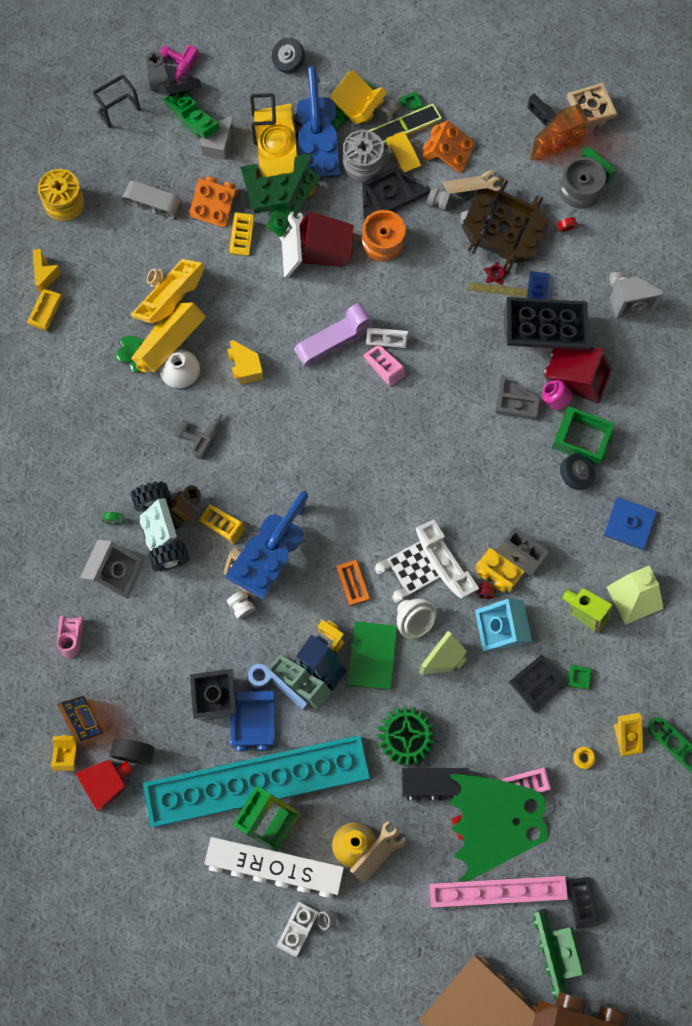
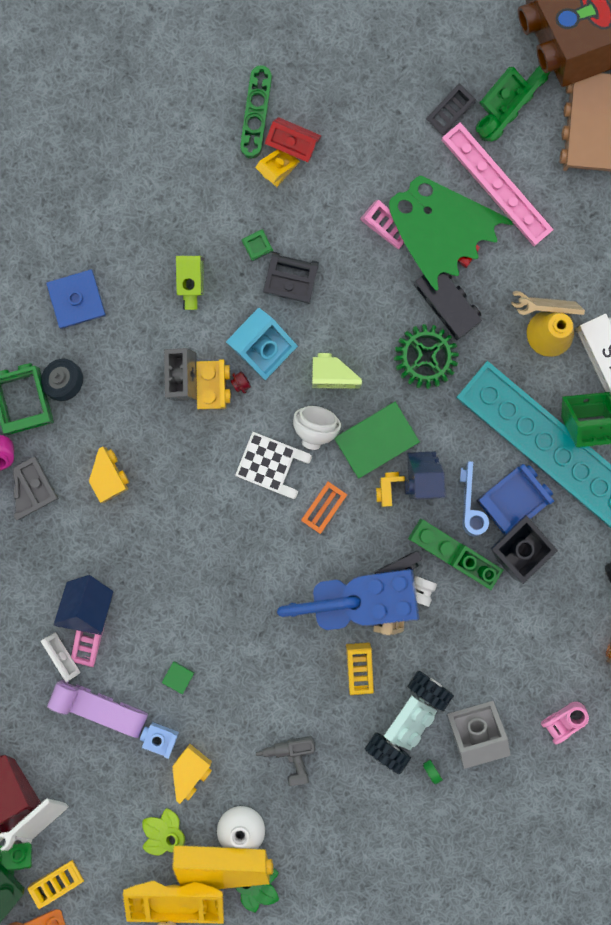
camera: 125 degrees left, 15 degrees up
(184, 505) = (373, 716): dark brown piece -> none
(221, 320) = (159, 831): none -> lime plate
(248, 647) = (455, 554): none -> green slope
(269, 608) = (407, 562): none -> black plate
(280, 366) = (167, 736): none -> light blue brick
(300, 681) = (454, 467): sand green slope -> none
(313, 402) = (178, 677): none -> green tile
(408, 376) = (84, 605): none -> dark blue slope
(443, 561) = (243, 438): white slope -> none
(487, 452) = (105, 476): none -> yellow slope
(550, 919) = (487, 125): none -> green tile
(590, 754) = (330, 185): yellow plate -> none
(636, 595) = (143, 246): yellowish green slope -> none
(643, 761) = (292, 139): none -> red panel

